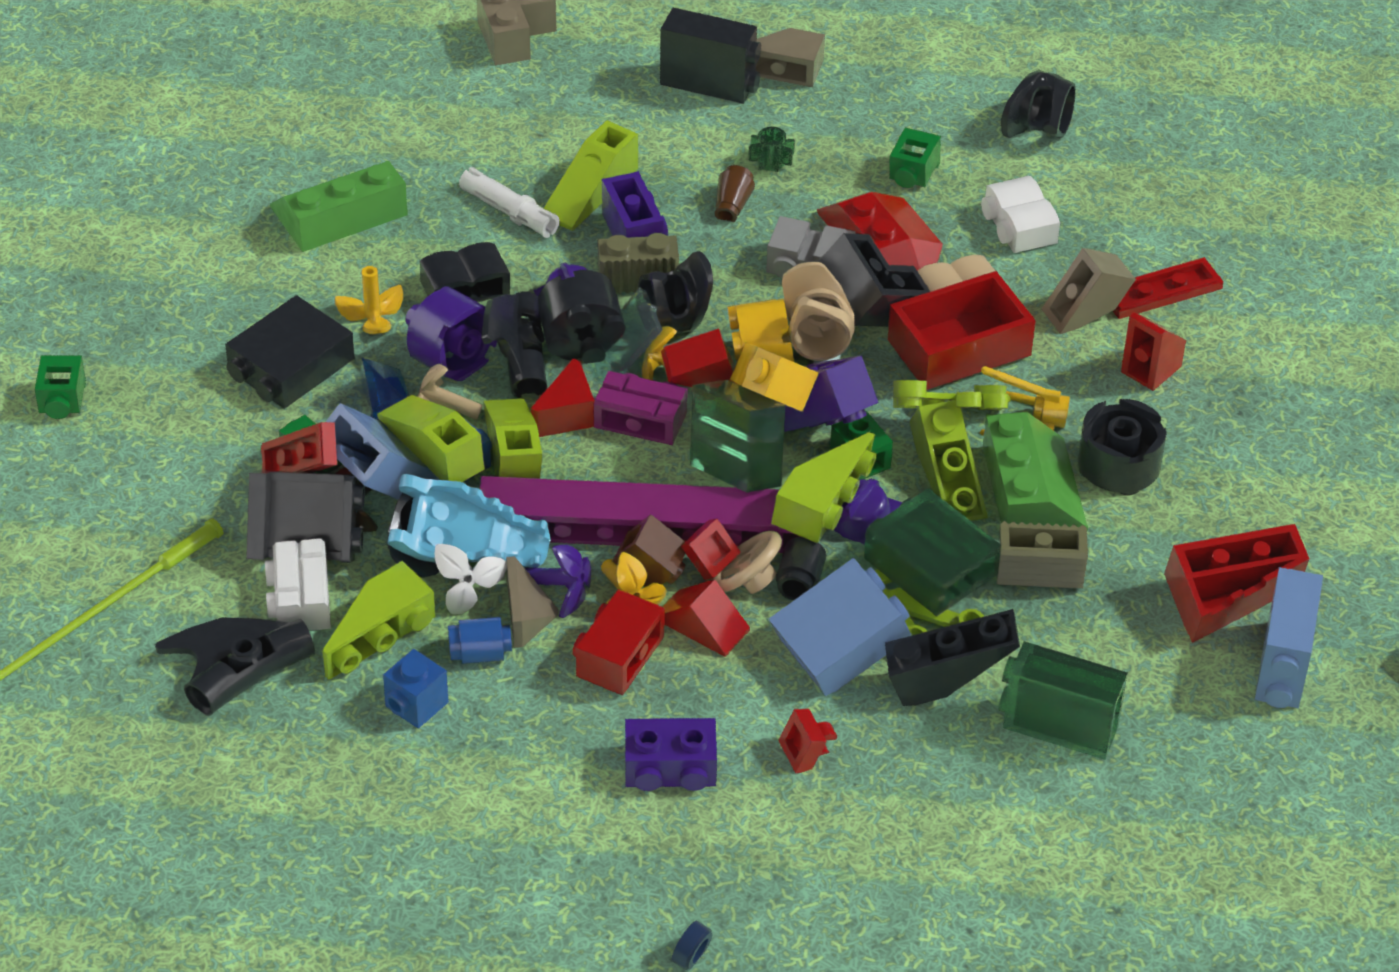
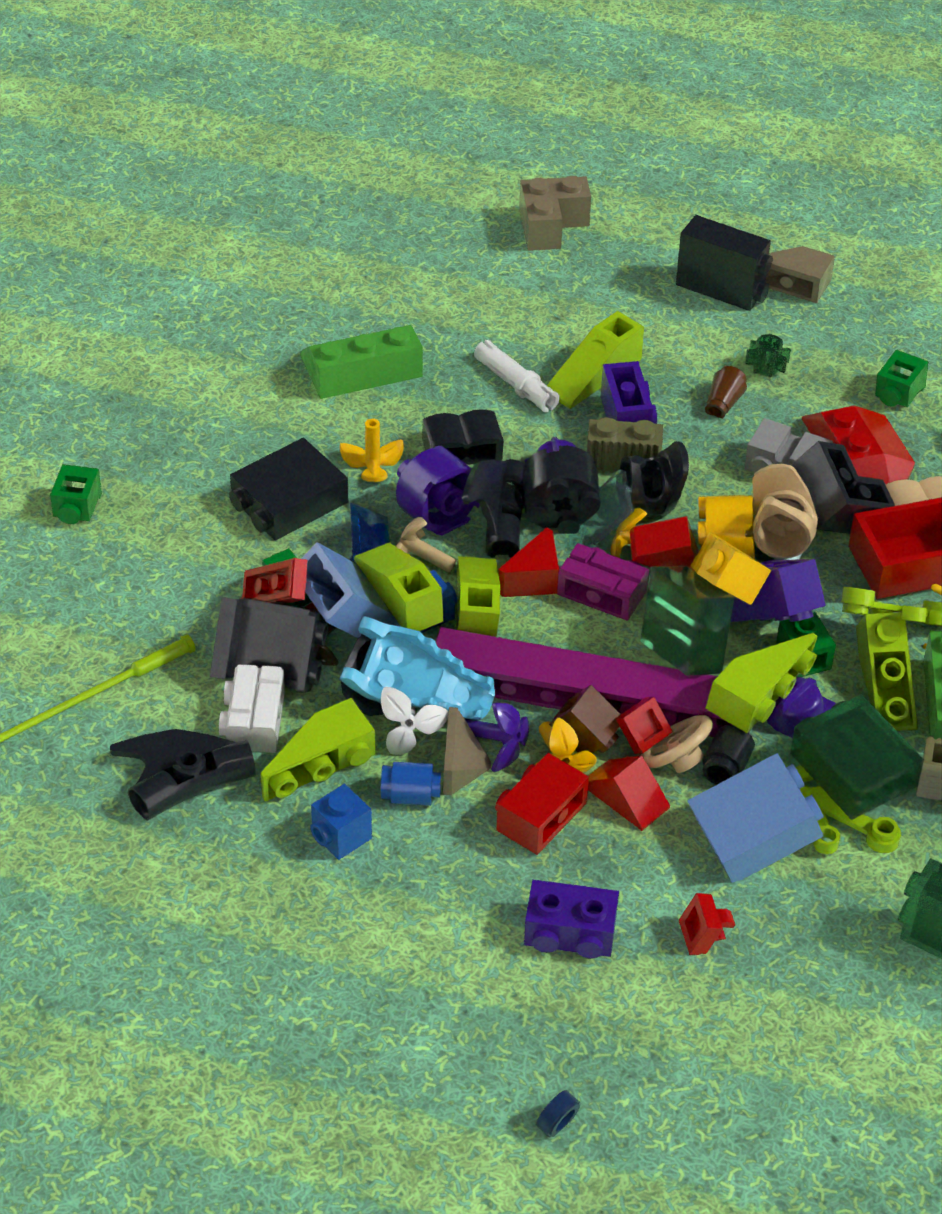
camera: 10 degrees right, 0 degrees up
(947, 658) = (854, 863): black slope -> none

